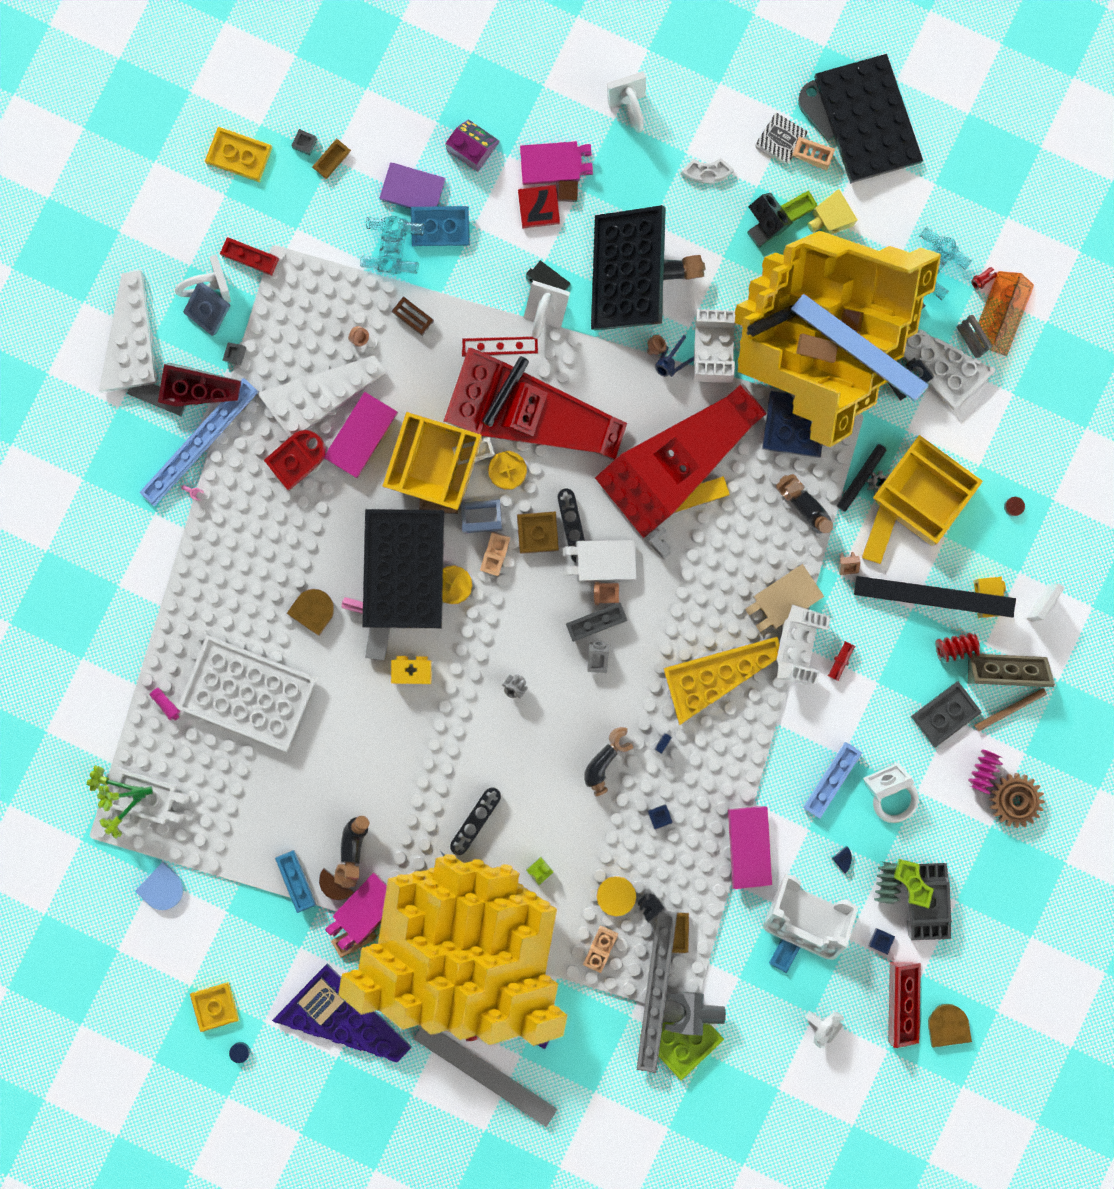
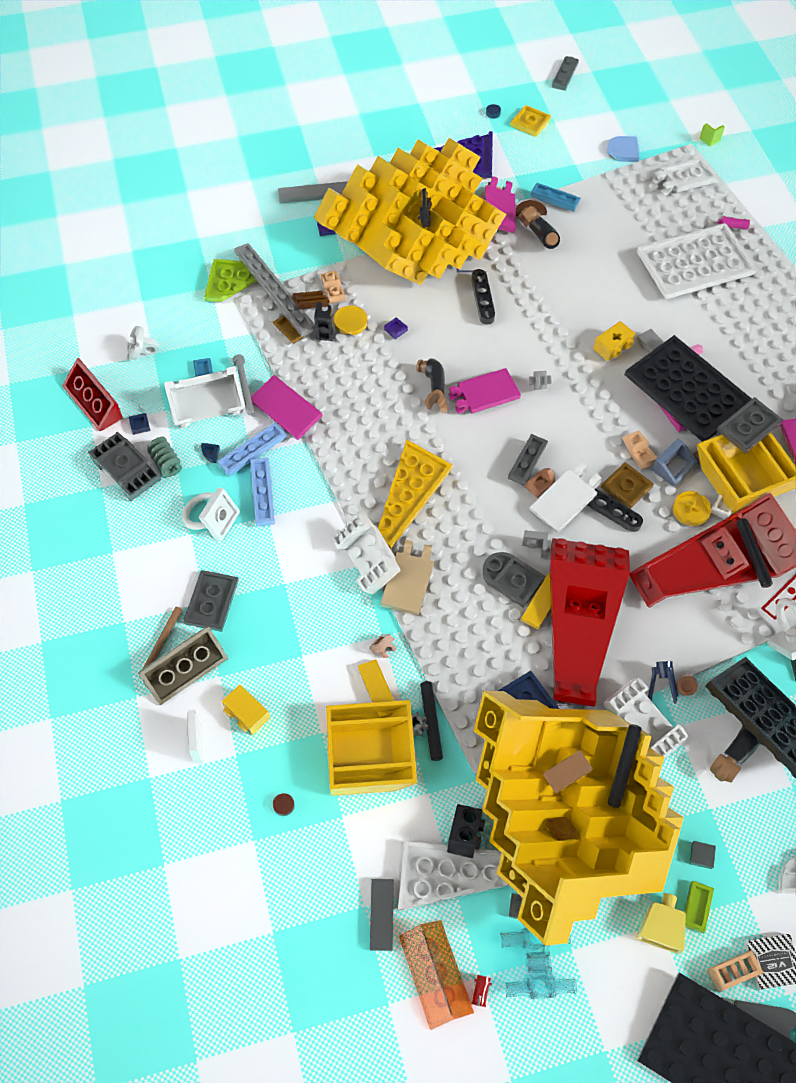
camera: 135 degrees right, 25 degrees down
(60, 829) = (710, 135): none -> lime panel
(107, 797) = (687, 148): lime plant -> none
(112, 1043) = (565, 73): none -> dark grey plate
(313, 610) = (712, 331): pearl gold tile -> none
(321, 1001) = (480, 150): piece -> none
(399, 488) = (749, 425): none -> dark grey tile
(456, 585) = (645, 412): yellow tile -> none
(480, 926) = (425, 215): none -> black piece
(539, 870) = (414, 299): lime tile -> none
(566, 718) = (484, 391): none -> dark pink tile
(583, 853) = (395, 328): none -> dark purple tile
(598, 657) = (505, 438): light grey bracket -> none
(620, 943) = (309, 299): none -> reddish brown tile
(660, 816) = (365, 381): dark blue tile -> none
(663, 742) = (406, 420): dark blue tile -> none
(695, 1013) = (237, 292): dark grey connector -> none
(703, 532) = (512, 578): none -> dark grey tile
(748, 936) = (239, 360): none -> light grey bar
(770, 215) = (713, 873): black brick -> none
(806, 504) = (452, 657): piece -> none
(809, 830) = (252, 449): none -> light blue plate
(841, 661) = (326, 573): red pin -> none
(859, 348) = (535, 795): light blue tile -> none
(909, 875) = (138, 458): lime tile -> none
(935, 596) = (290, 671): black tile -> none
(948, 1026) = (47, 408): pearl gold tile -> none
(956, 646) = (240, 649): red piece -> none
(972, 339) = (443, 922): dark grey tile -> none
(985, 771) = (146, 578): dark pink piece -> none
(1007, 377) = (381, 915): none -> dark grey tile
(1028, 803) = (92, 579): medium nougat gear -> none

